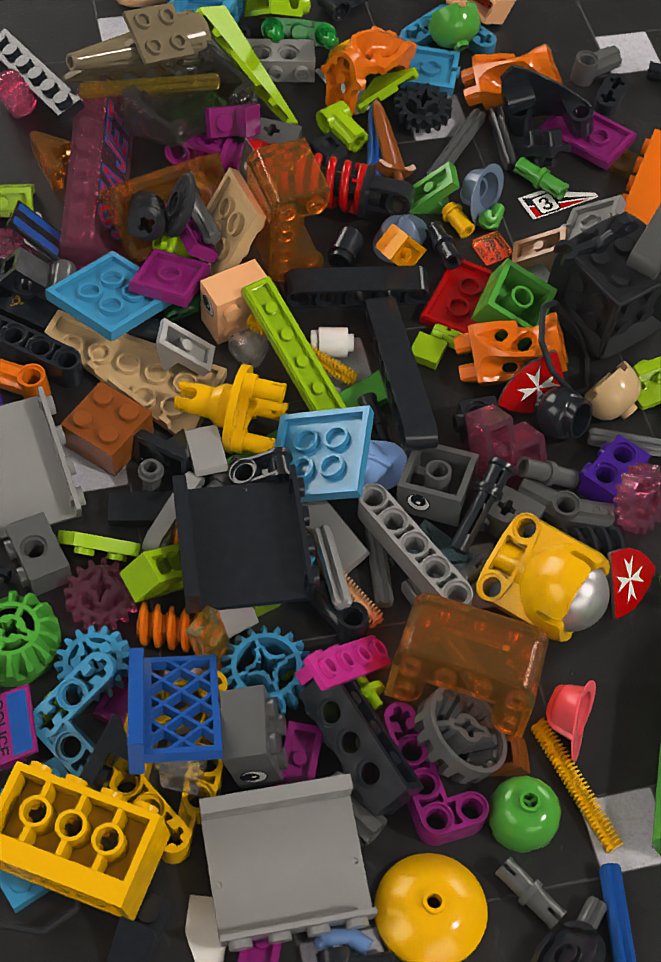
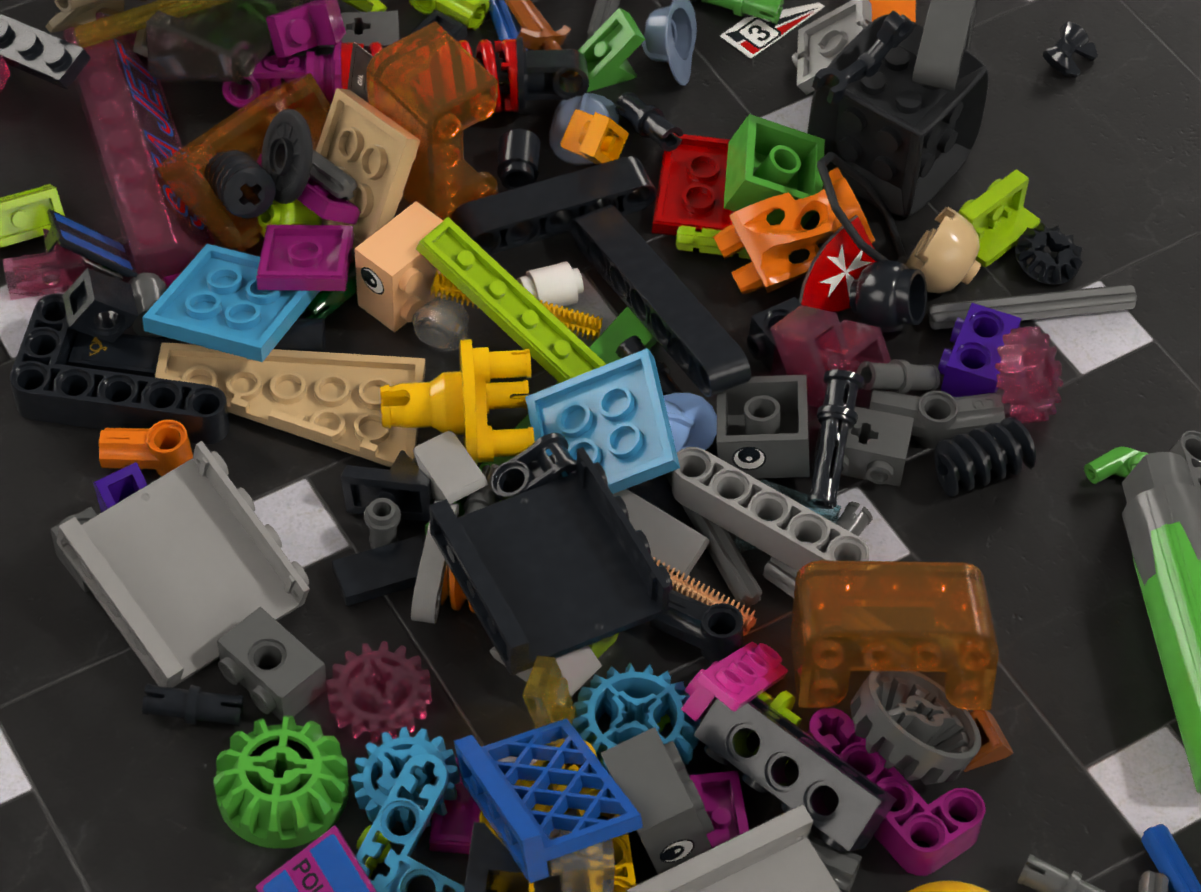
camera: 15 degrees left, 5 degrees down
(51, 155) = (61, 140): clear orange slope -> none
(88, 543) = (340, 629): lime wing -> none
(105, 428) = (298, 477): dark orange brick -> none
(154, 573) = (446, 640): lime brick -> none
(164, 627) = (485, 705): orange piece -> none
(181, 346) = (363, 344): light grey slope -> none
(332, 567) = (684, 582): light grey axle -> none
(428, 350) = (683, 261): lime tile -> none
(454, 215) = (645, 78): yellow pin -> none
(491, 217) = (697, 71): bright green arm -> none
(491, 248) = (711, 109): clear orange tile -> none
(523, 813) = (1026, 800): bright green cylinder -> none
(538, 248) = (782, 92): medium nougat slope -> none
(546, 579) = (951, 503): yellow piece -> none
(569, 712) = (1035, 658): coral piece -> none
(576, 786) = (1076, 749): yellow axle -> none
(628, 579) = (1049, 478): red shield -> none

